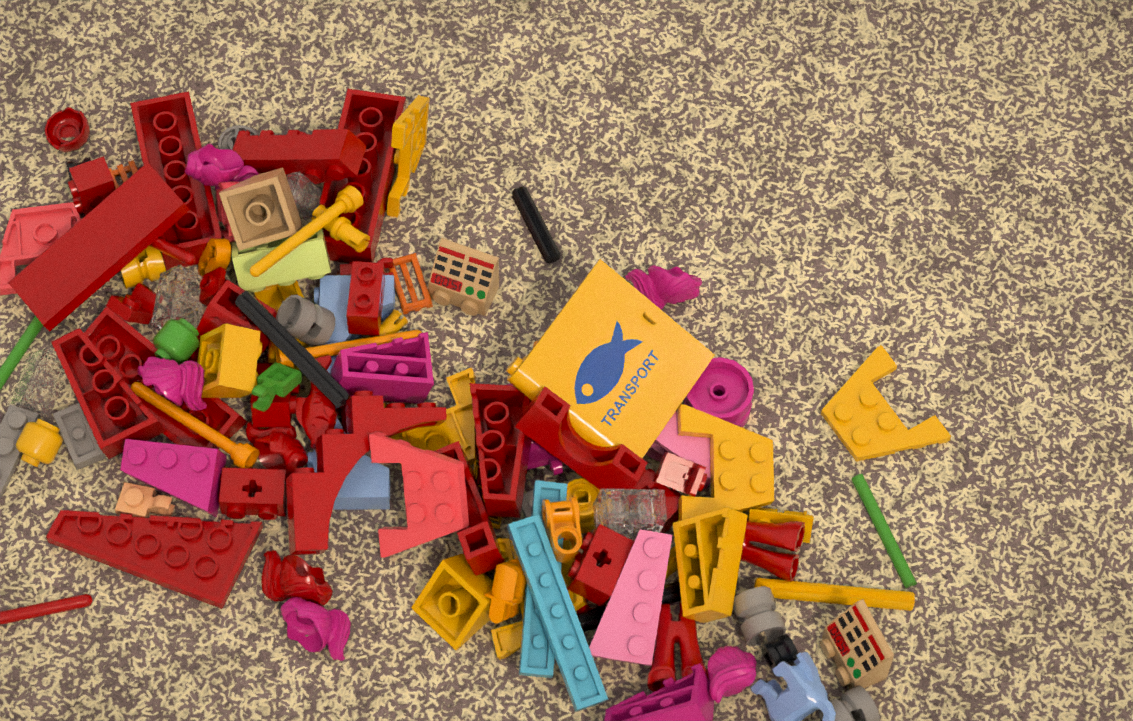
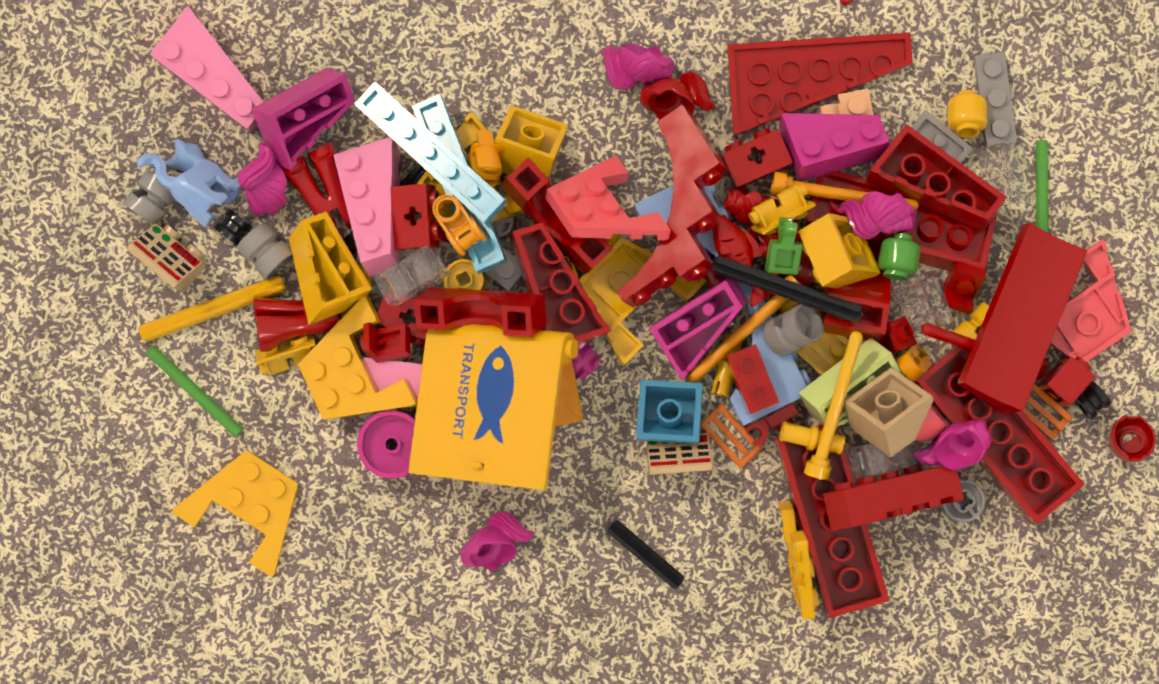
camera: 155 degrees right, 25 degrees up
(246, 424) = (791, 205): none -> yellow hinge
(454, 310) = (669, 411): none -> dark azure slope

